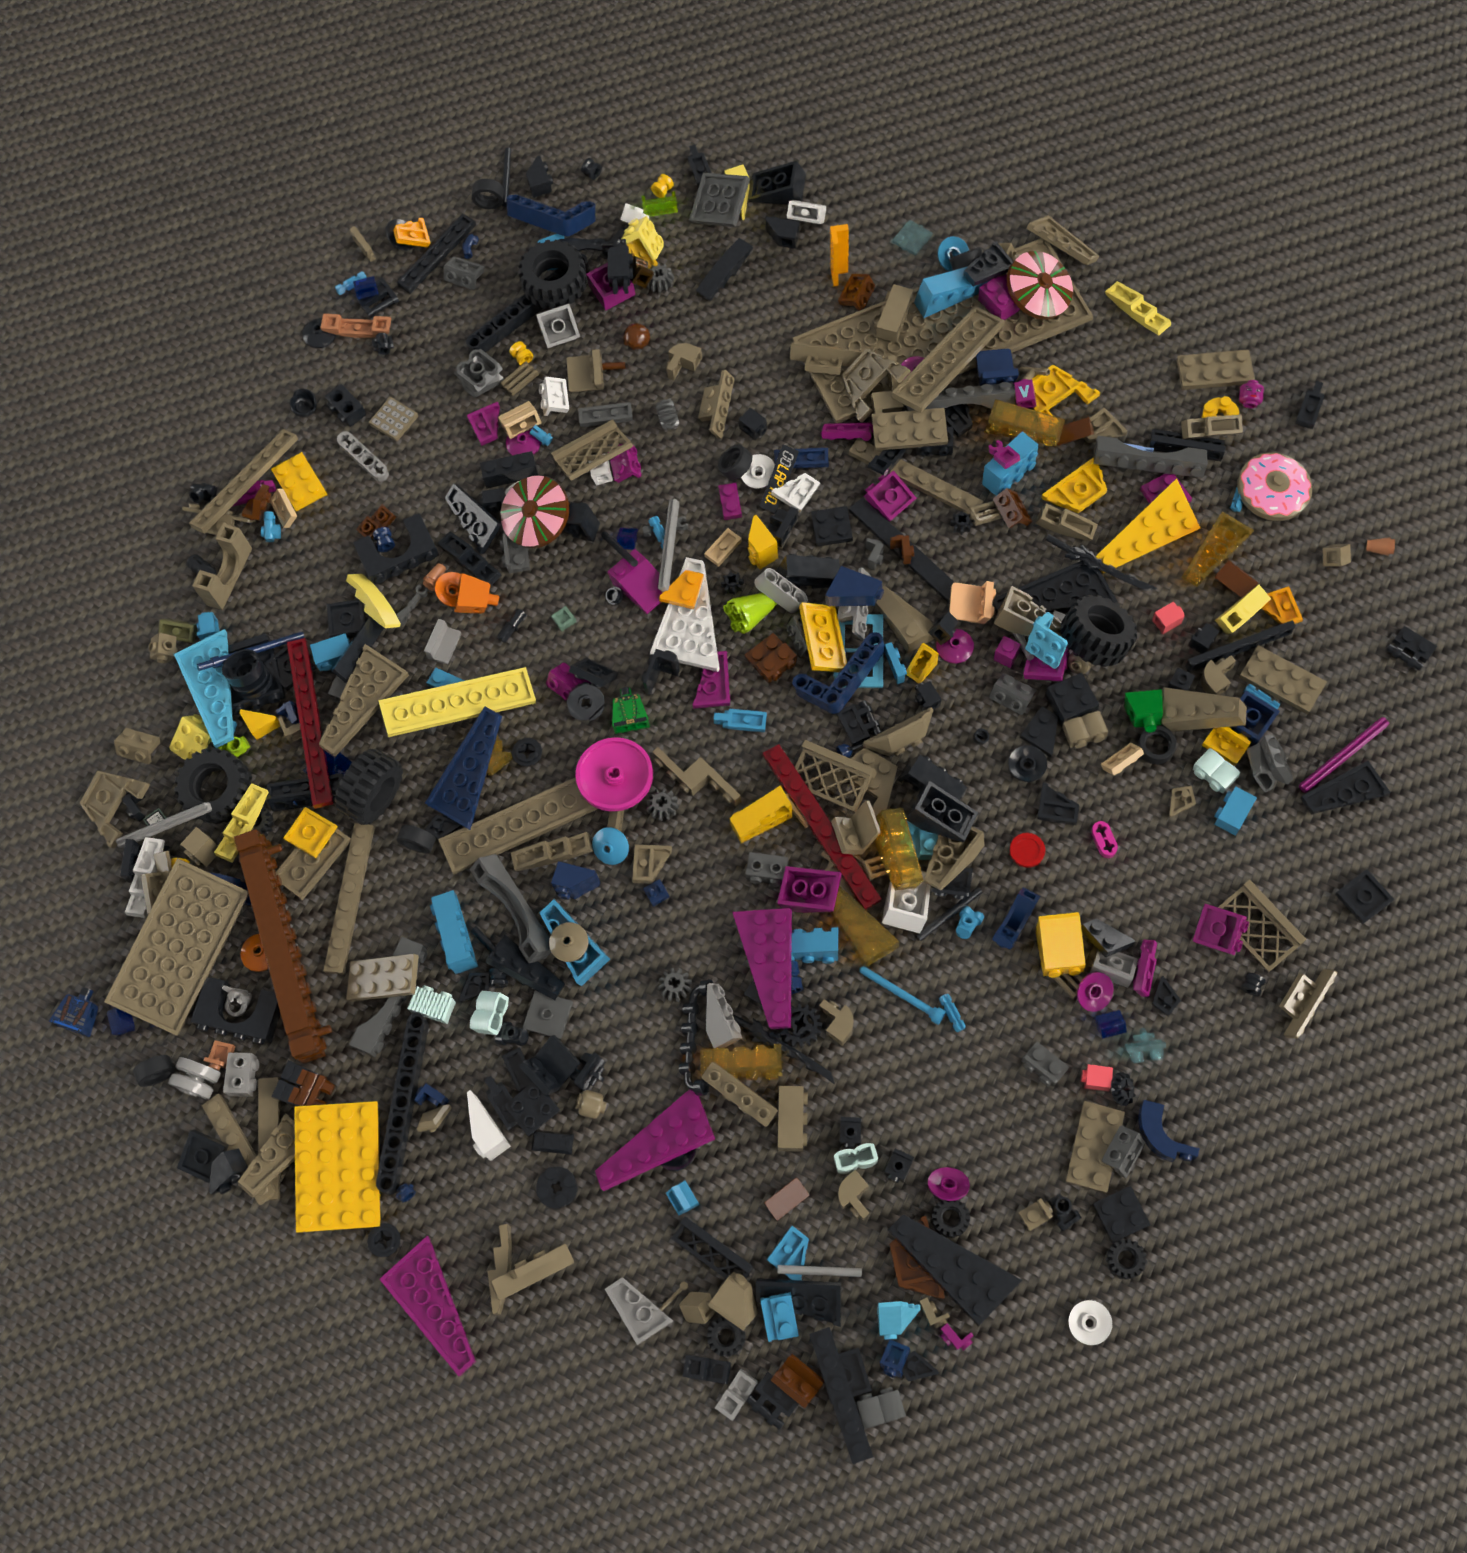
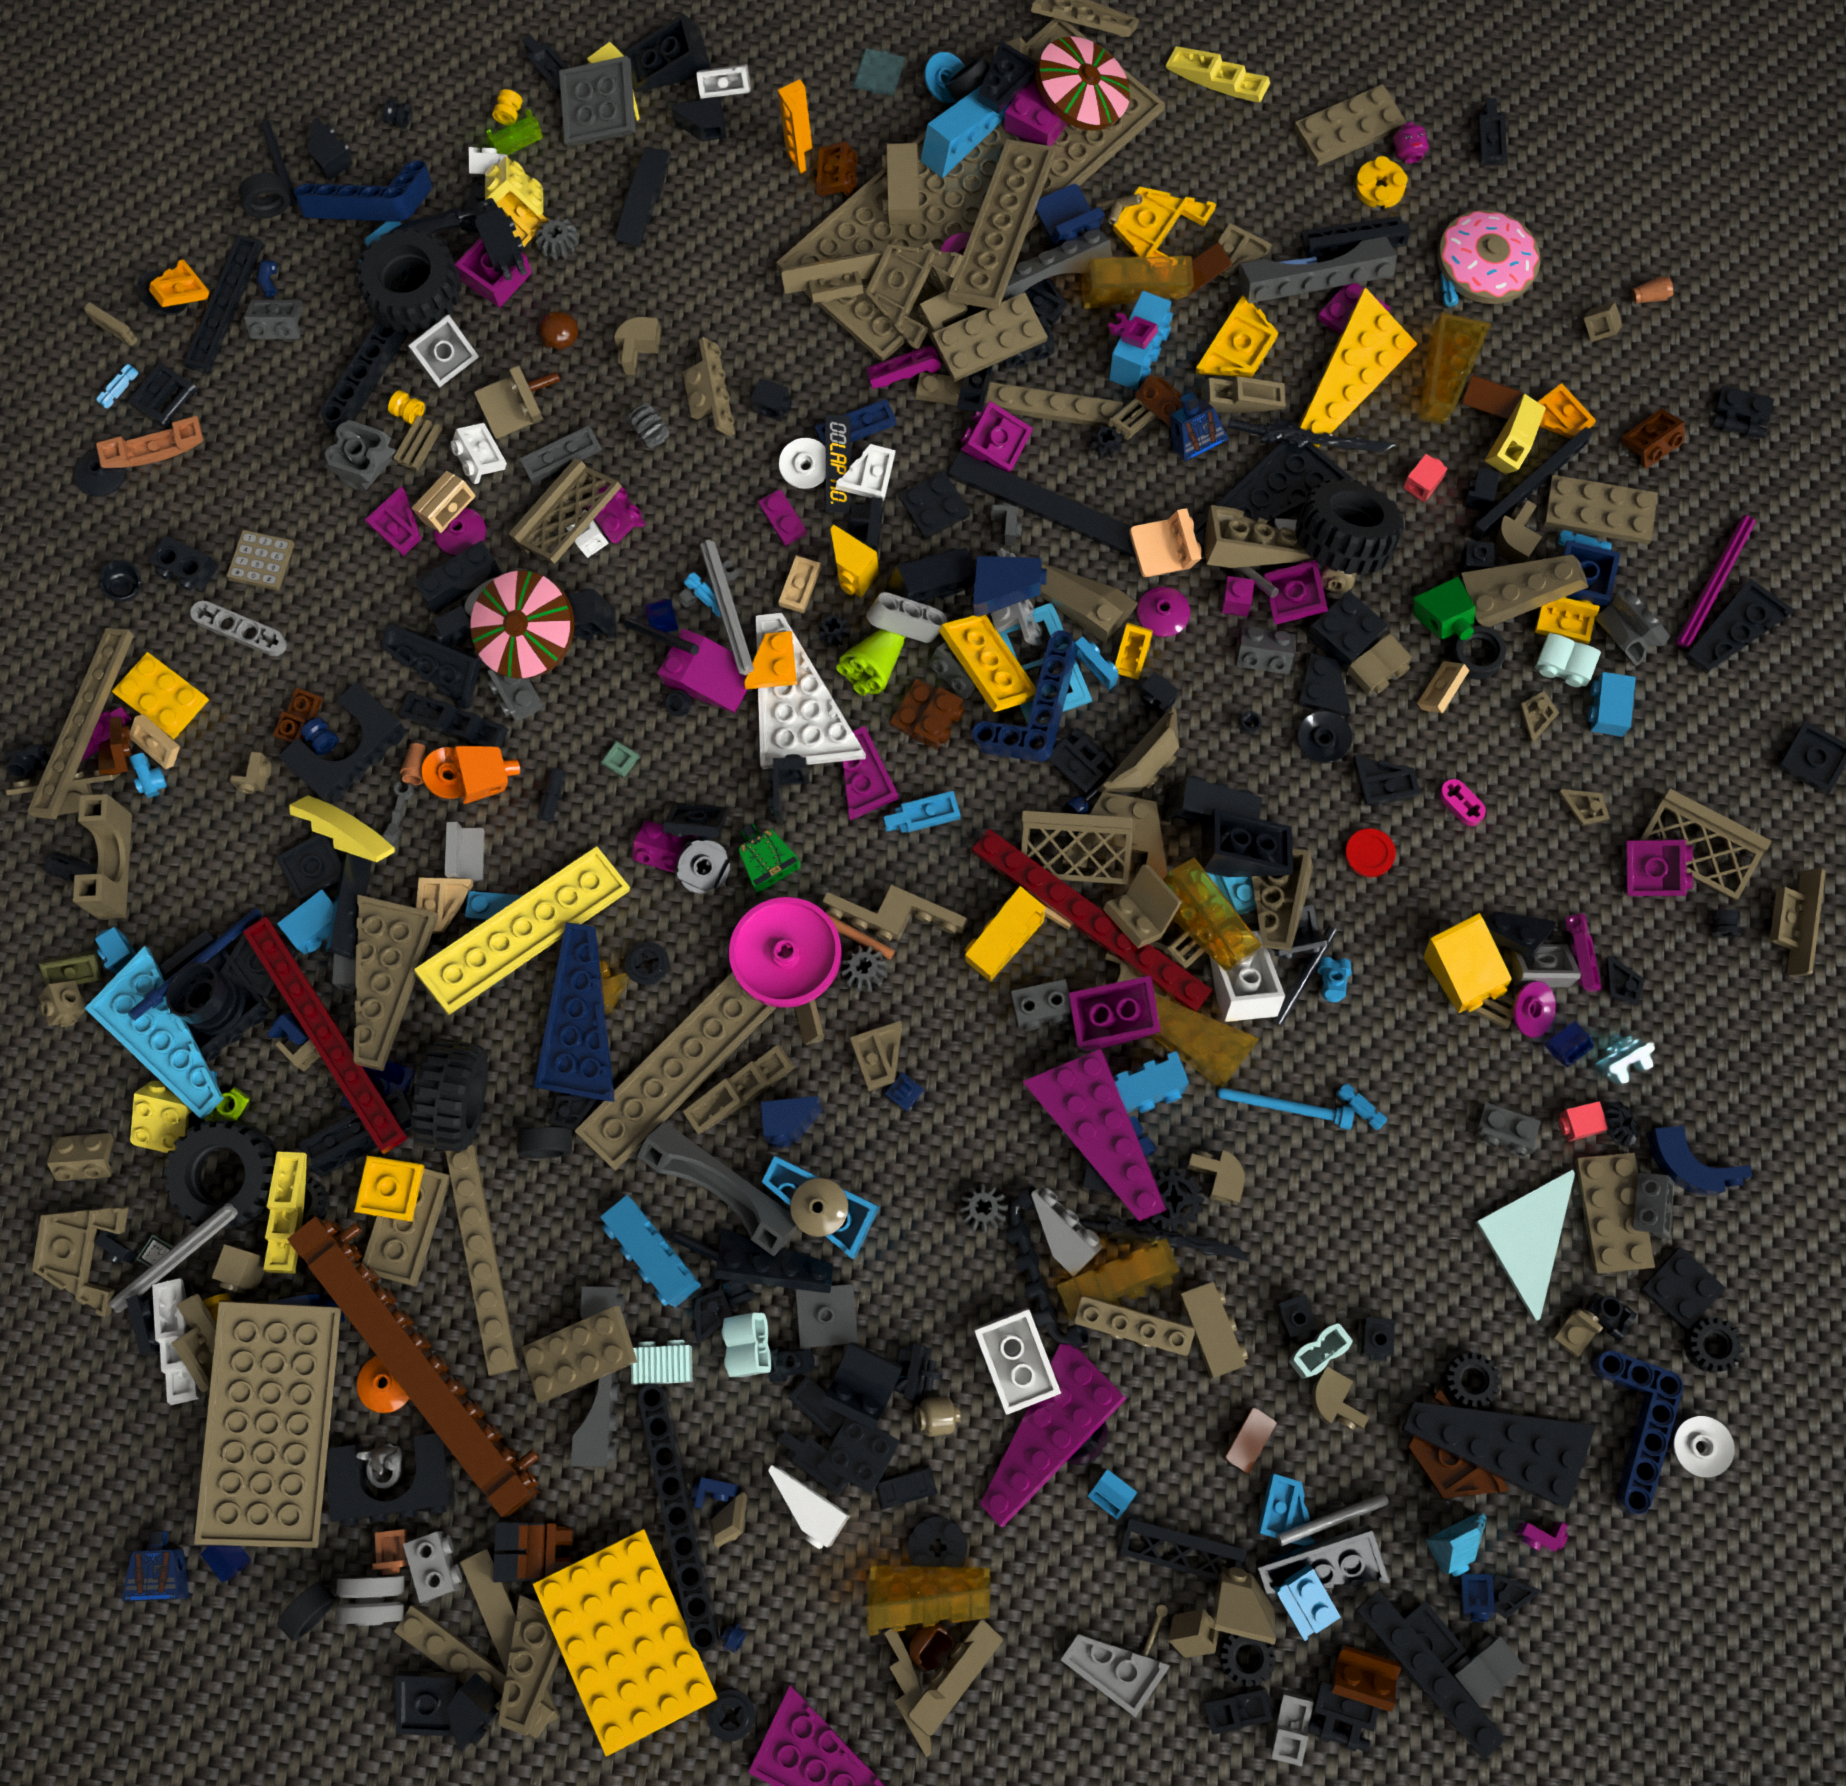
camera: 25 degrees left, 5 degrees up
(259, 723) = (249, 1061): yellow slope -> none
(335, 550) = (258, 771): none -> dark tan bracket
(365, 287) = (143, 385): clear blue piece -> none
(382, 343) = (200, 458): black gear -> none
(417, 665) = (443, 897): none -> tan wing
(524, 1246) = (930, 1647): none -> reddish brown hair
(534, 1212) = (925, 1596): none -> clear yellow wedge
(541, 435) = (483, 513): dark azure pin -> none
(615, 841) = (821, 1042): dark azure dish -> none
(641, 271) = (532, 238): dark brown leg -> none
(655, 1087) = (1017, 1360): none -> white slope
(668, 784) = (862, 938): none -> nougat bar
(737, 470) = (780, 467): black tyre -> none
(903, 542) = (1050, 503): reddish brown bracket -> none
(929, 1311) = (1496, 1516): dark tan bracket -> none
(944, 628) = (1143, 593): black brick -> none
(948, 1184) = (1449, 1328): magenta dish -> none
(1016, 918) = (1395, 950): dark blue arch -> none
(1023, 533) = (1195, 428): none -> dark blue torso
(1025, 393) = (1122, 237): magenta brick -> none
(1027, 1140) = (1527, 1238): none -> light aqua tile
(1046, 643) = (1292, 567): medium azure bracket -> none
(1057, 1294) = (1645, 1424): none -> dark blue beam
(1189, 872) = (1586, 806): none -> dark tan piece
(1211, 426) = (1379, 203): dark tan slope -> none
(1341, 644) = (1655, 437): none -> reddish brown bracket

